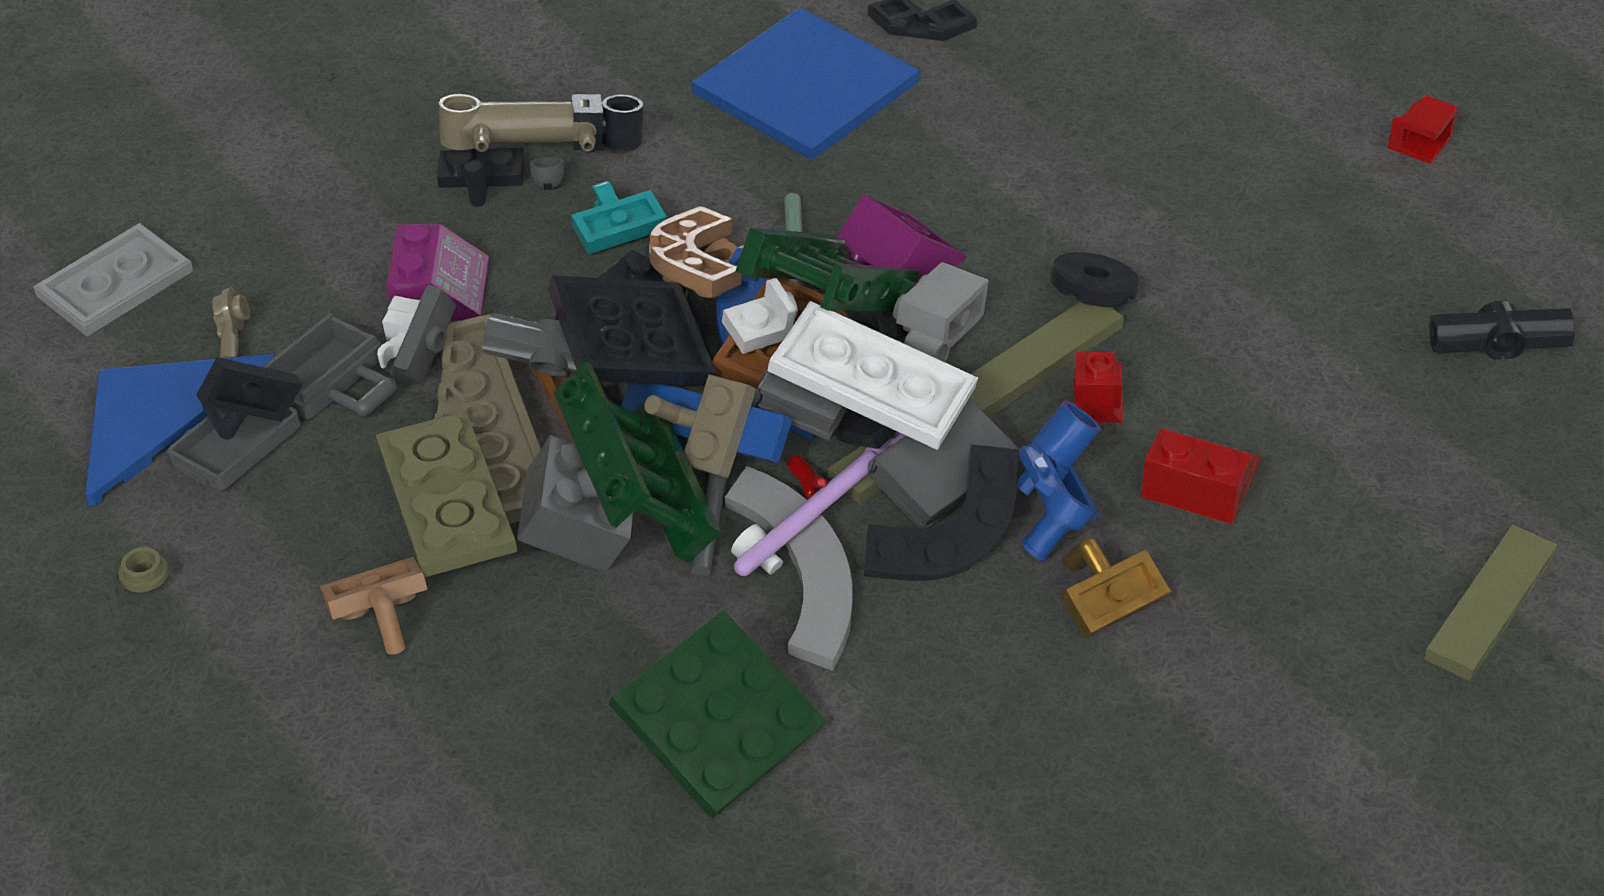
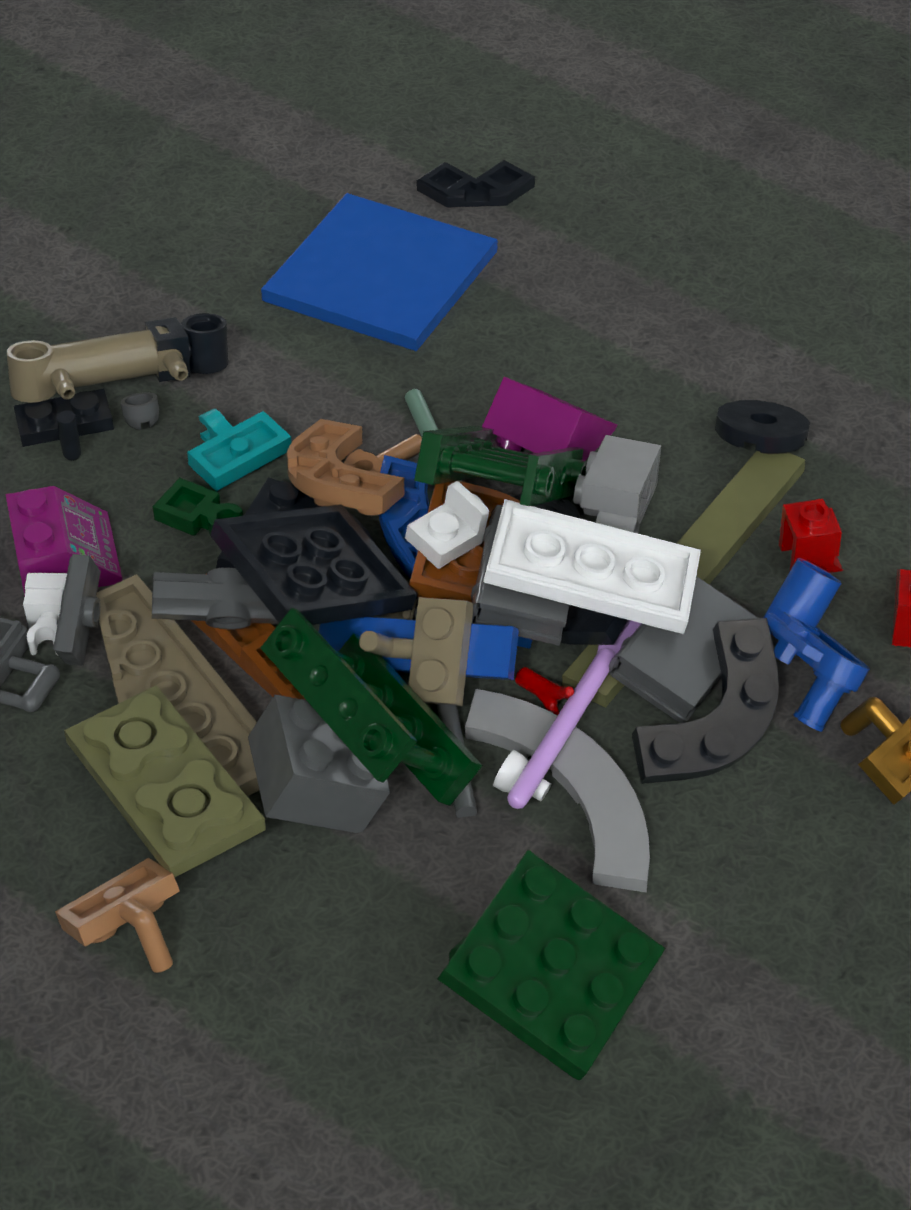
camera: 15 degrees left, 0 degrees up
(558, 259) = (192, 507): none -> dark green plate

